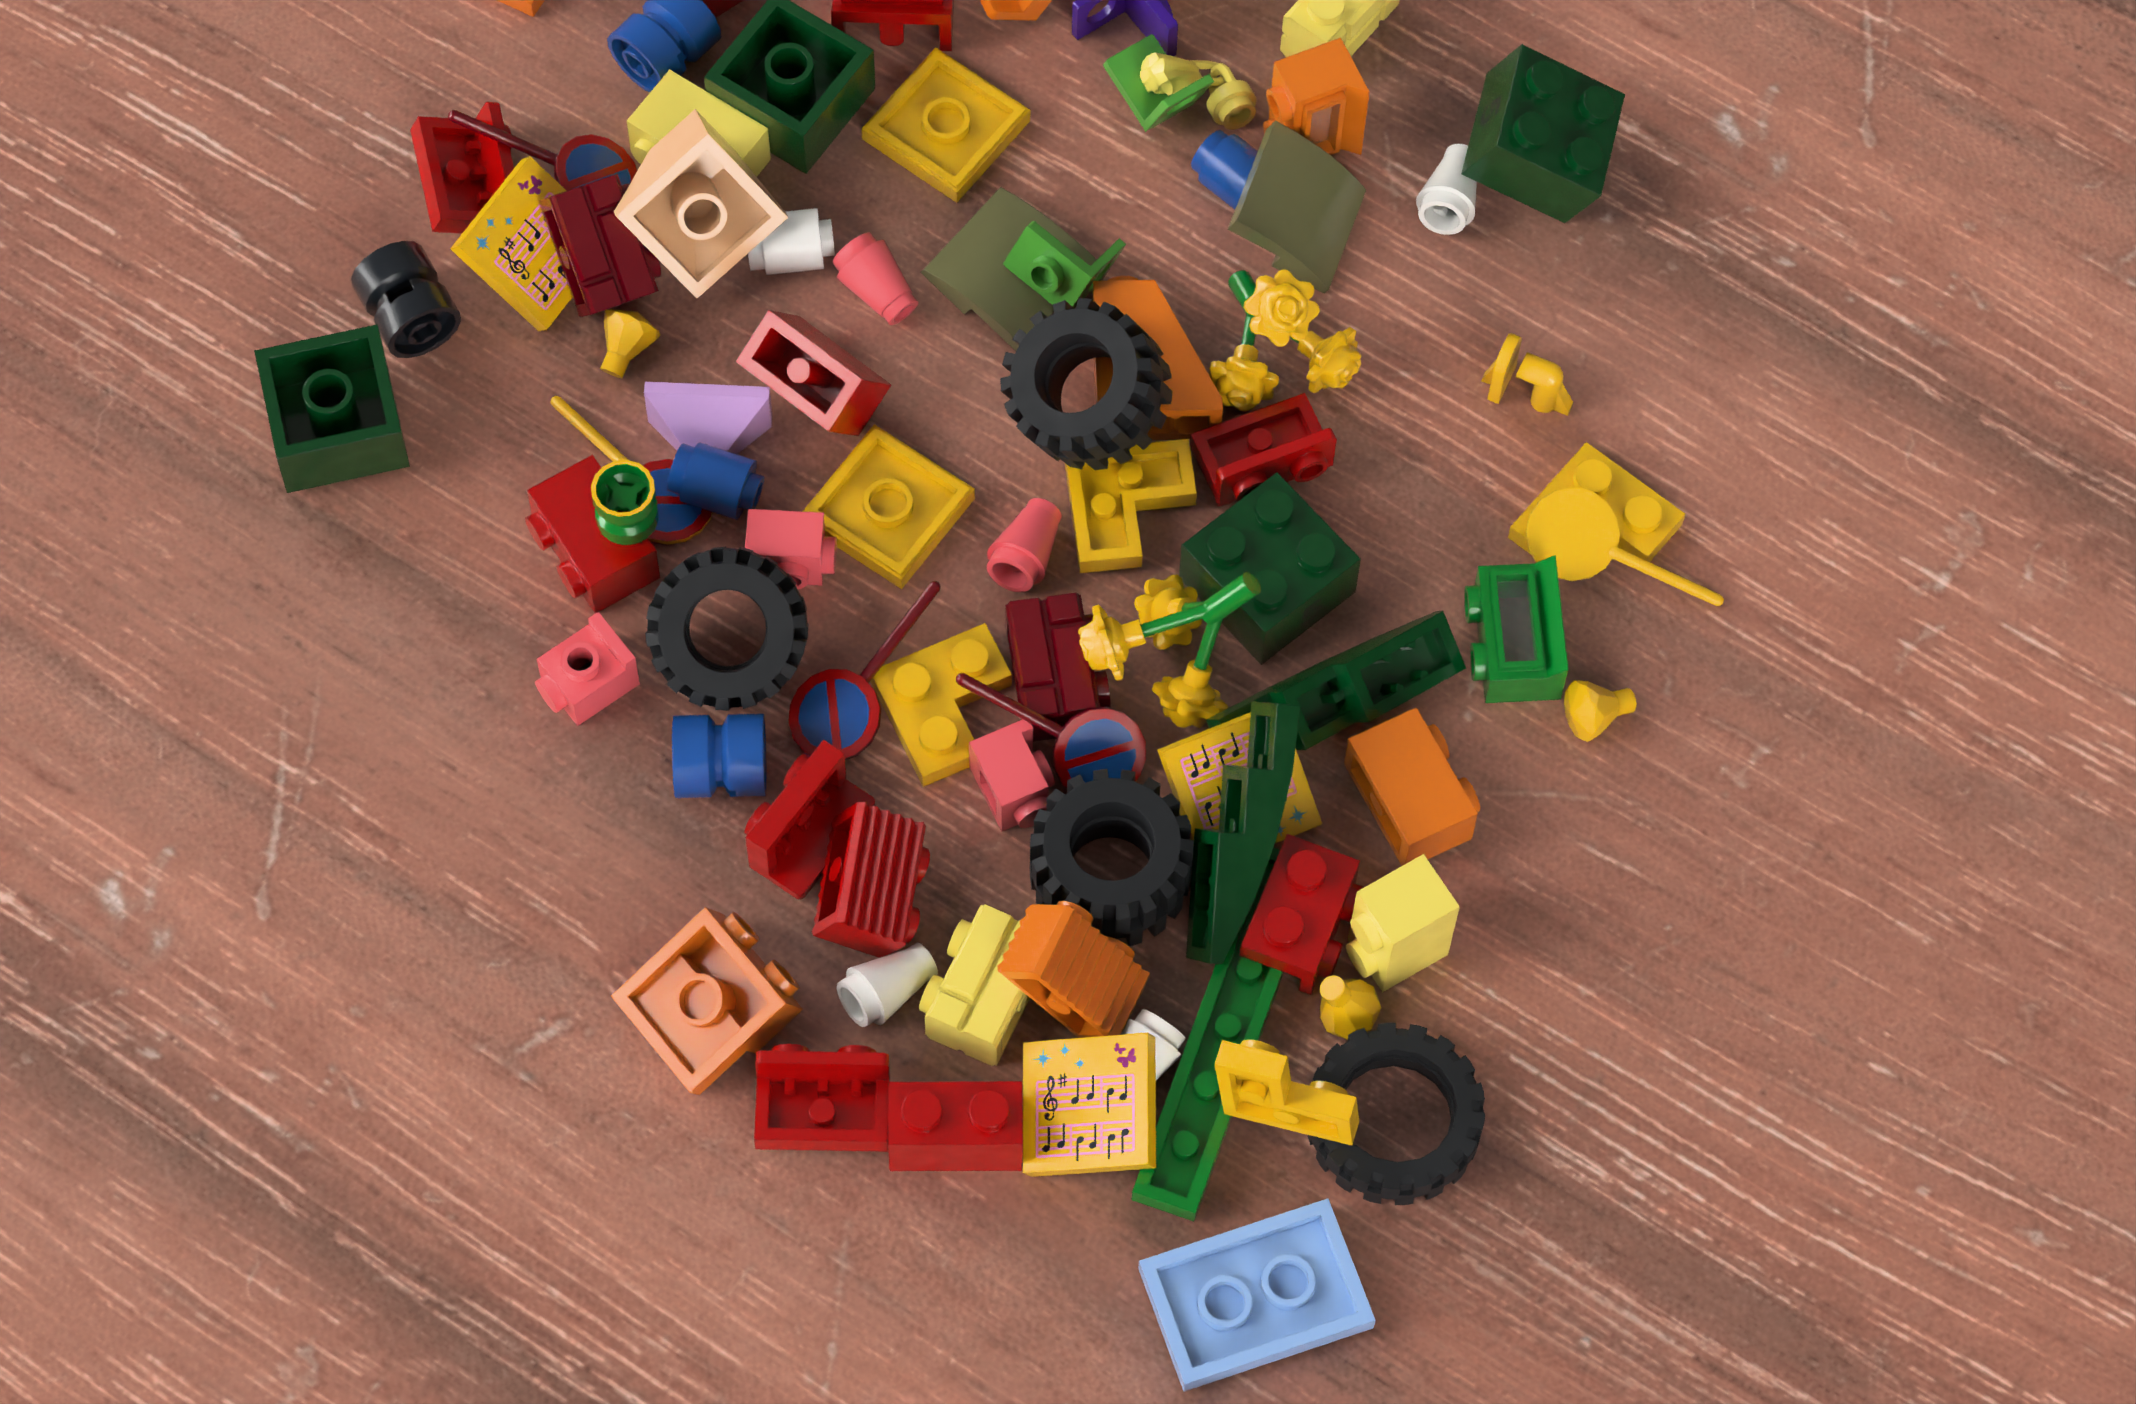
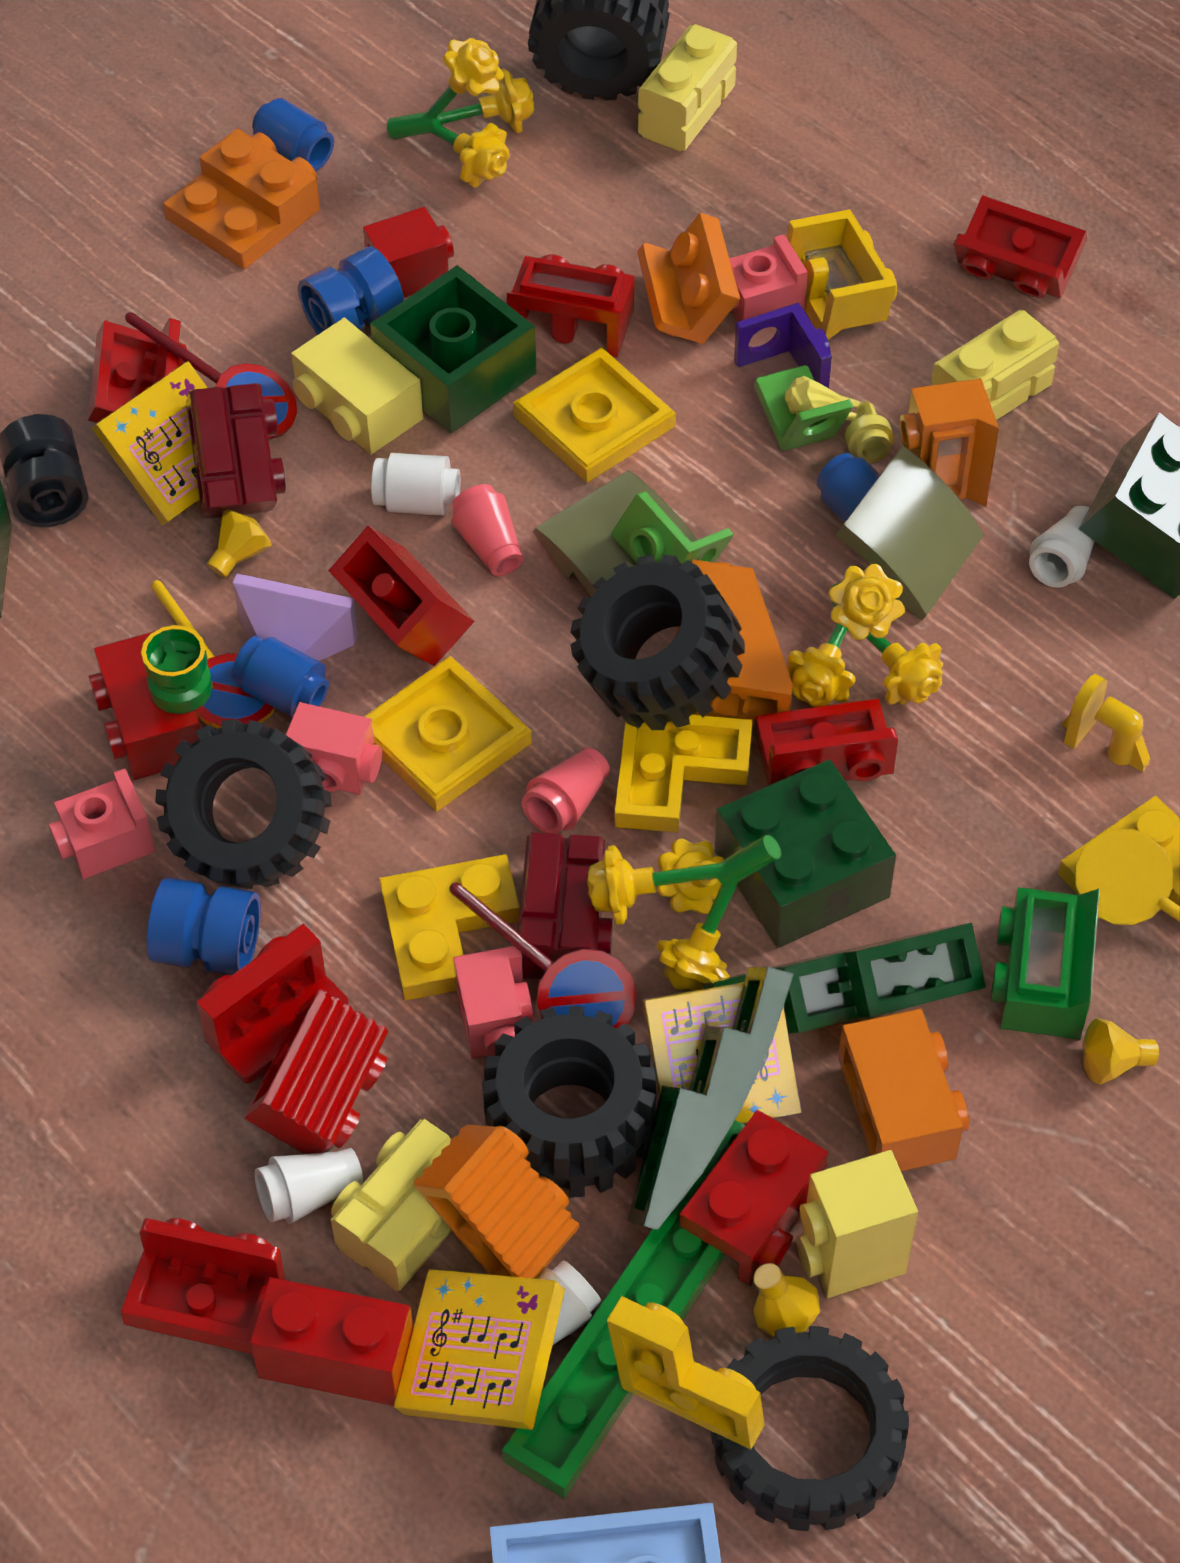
camera: 15 degrees right, 10 degrees down
(697, 205) = (331, 429): light nougat slope -> none
(708, 998) = (120, 1159): orange plate -> none
(842, 704) = (343, 903): piece -> none

